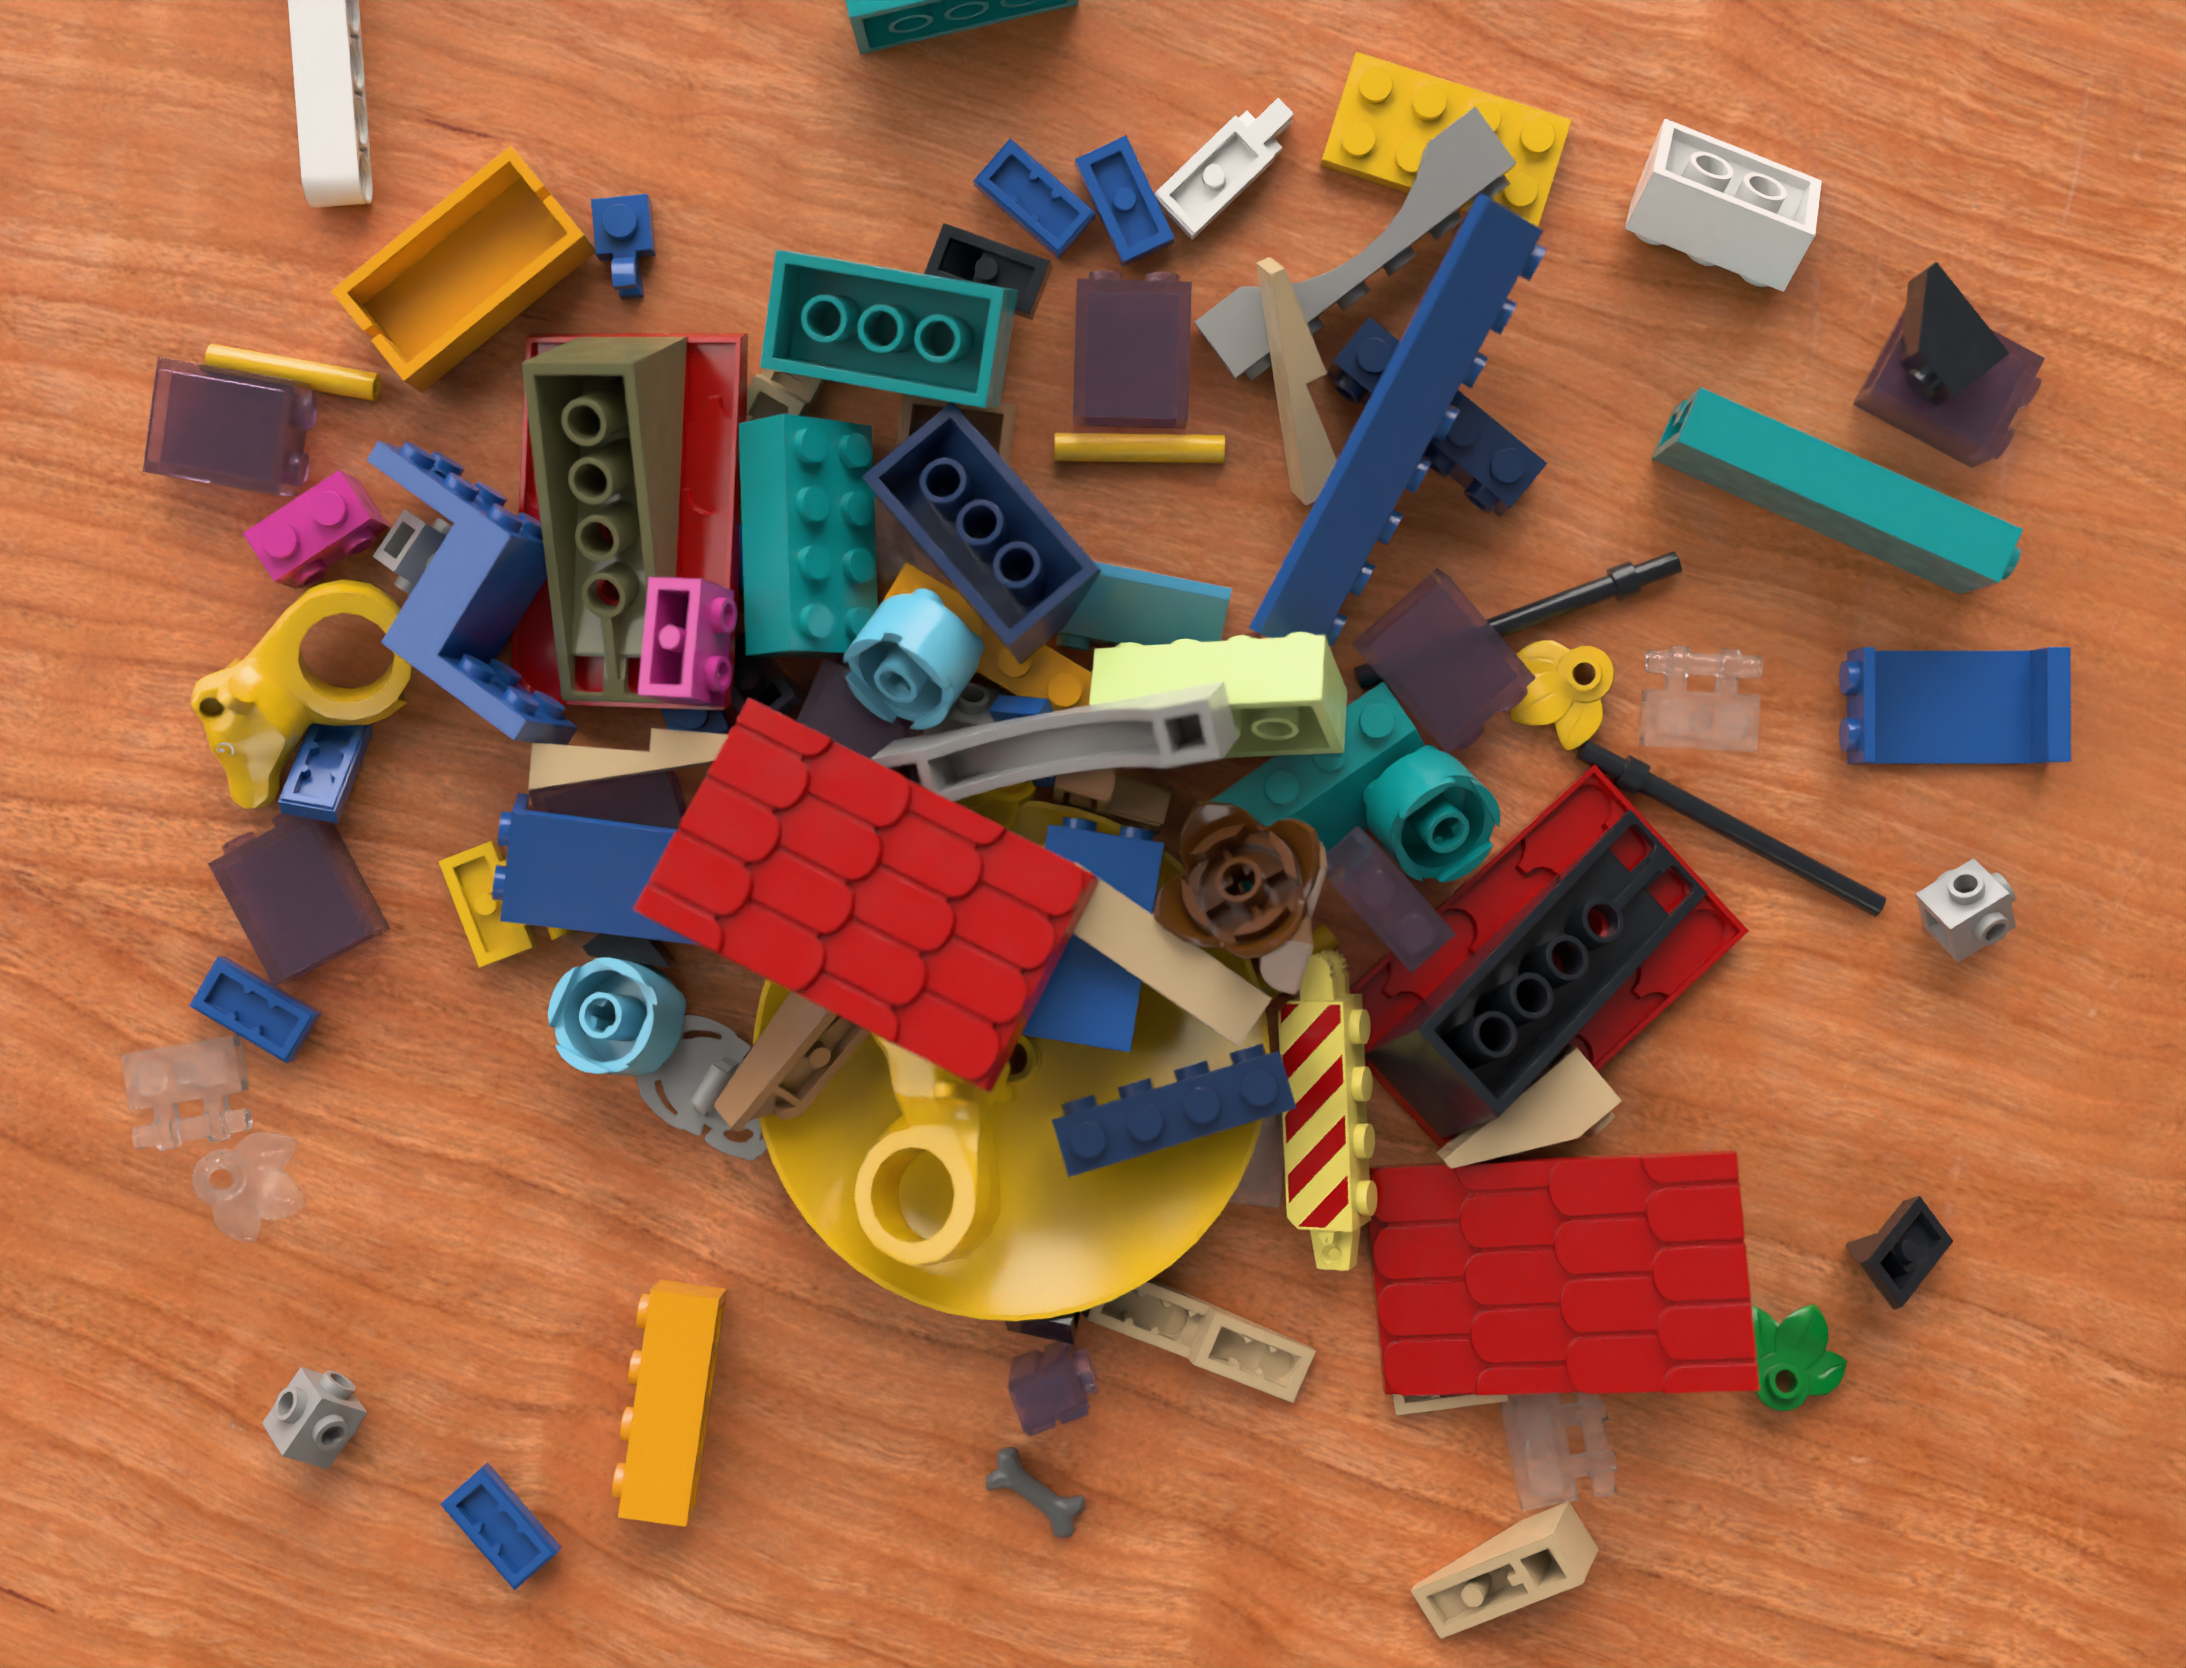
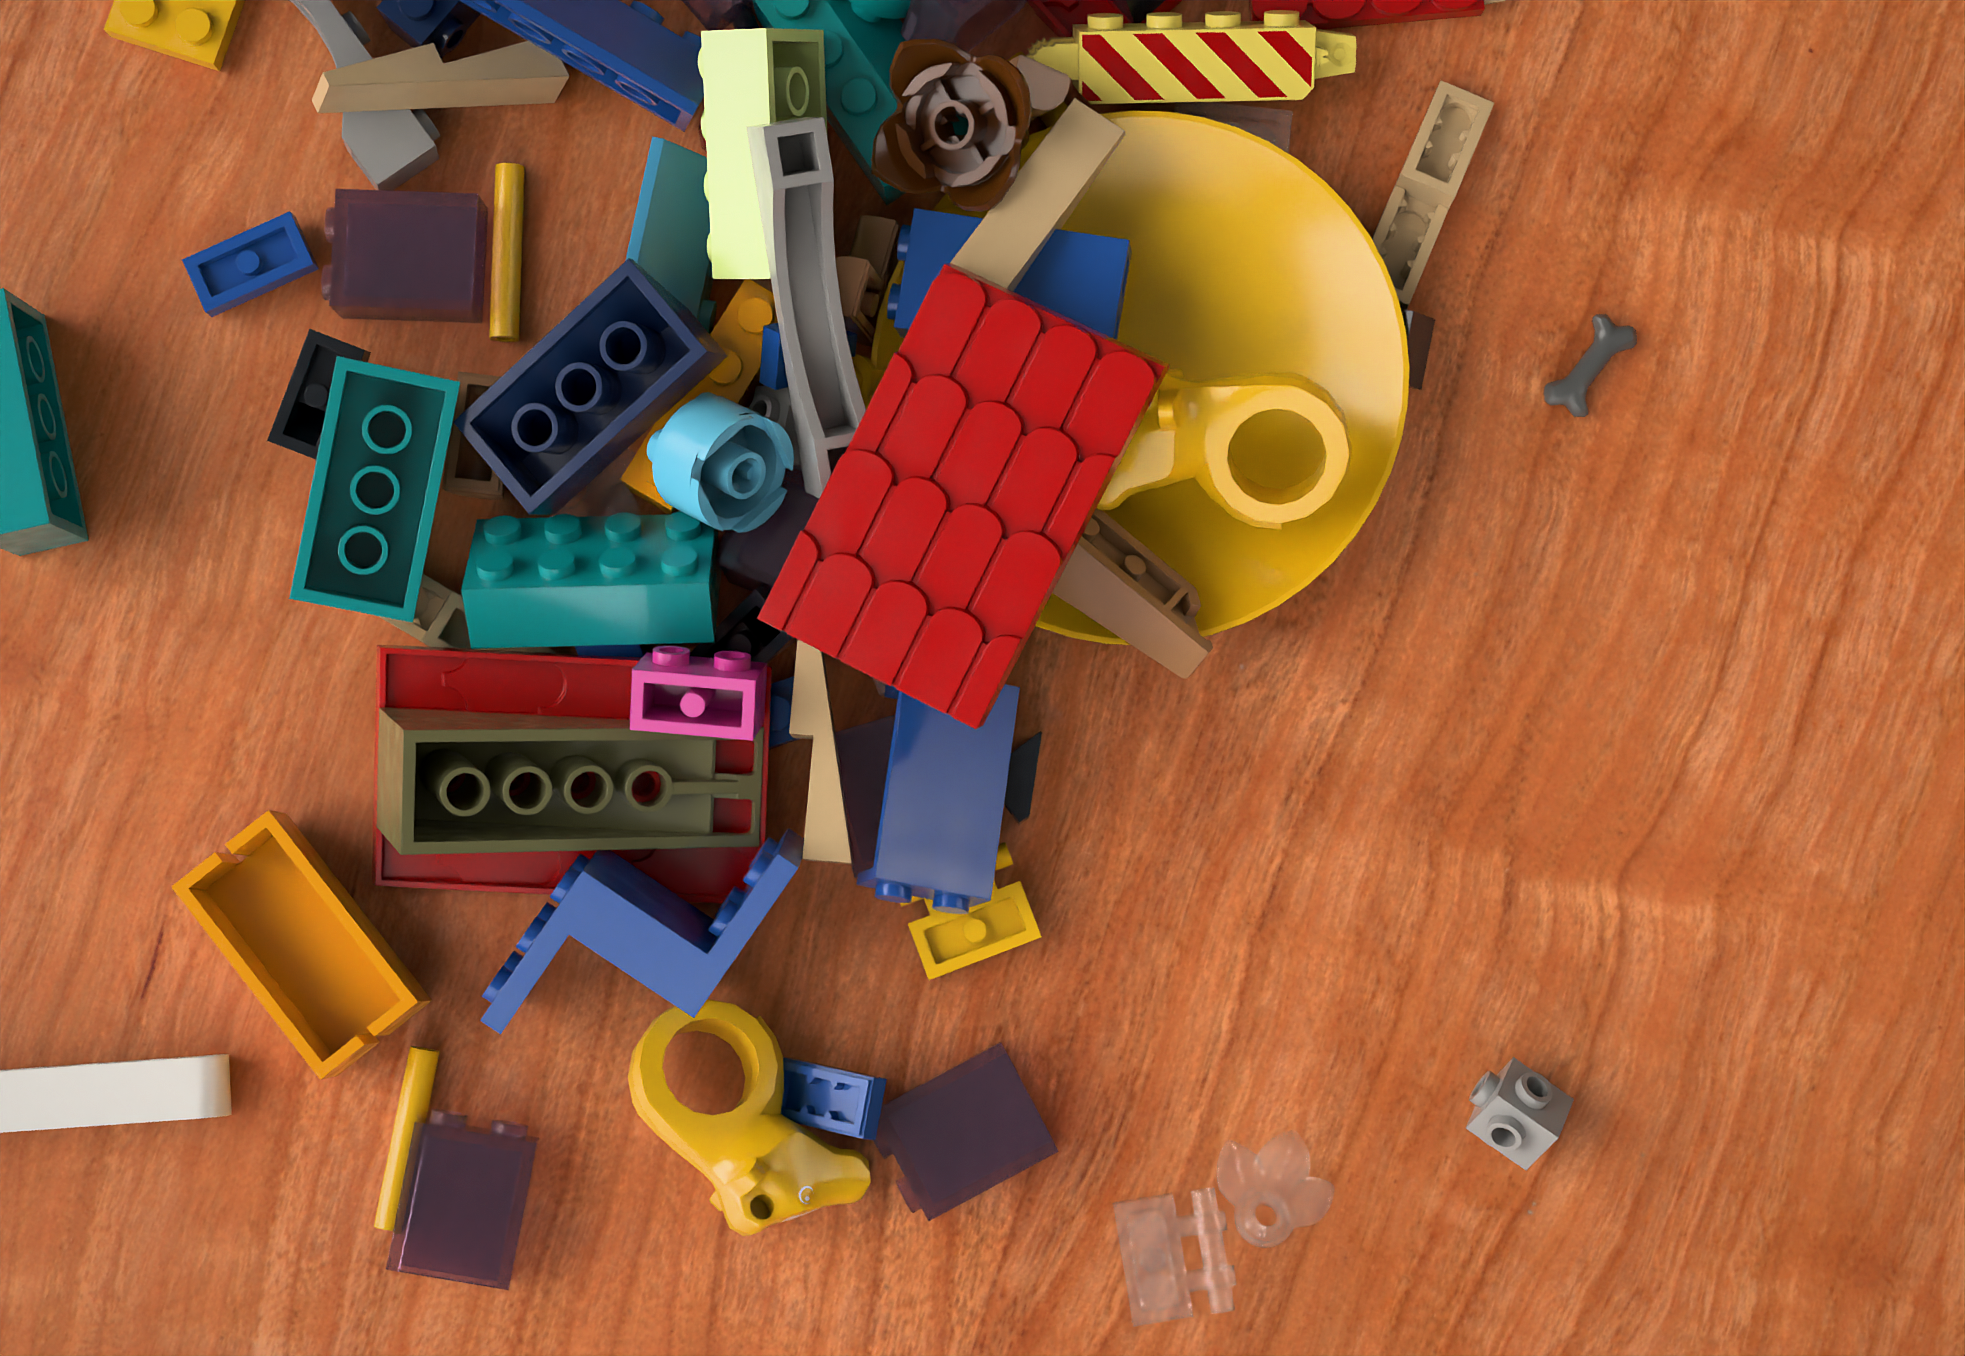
camera: 85 degrees left, 5 degrees down
(255, 1009) = (1085, 1180): blue plate -> none
(316, 531) = (575, 1106): dark pink brick -> none
(411, 548) = (600, 996): light grey brick -> none
(501, 1526) = (1632, 920): blue plate -> none
(616, 1017) = (1117, 811): medium azure brick -> none
(624, 234) = (272, 783): blue plate -> none
(670, 1402) = (1499, 737): light orange brick -> none
(693, 1082) = (1163, 708): light grey shield -> none
(1034, 199) = (245, 356): blue plate -> none
(1052, 1386) = (1477, 336): brick -> none
(1174, 1113) = (1193, 199): dark blue brick -> none
(1223, 168) = (220, 163): white hinge -> none

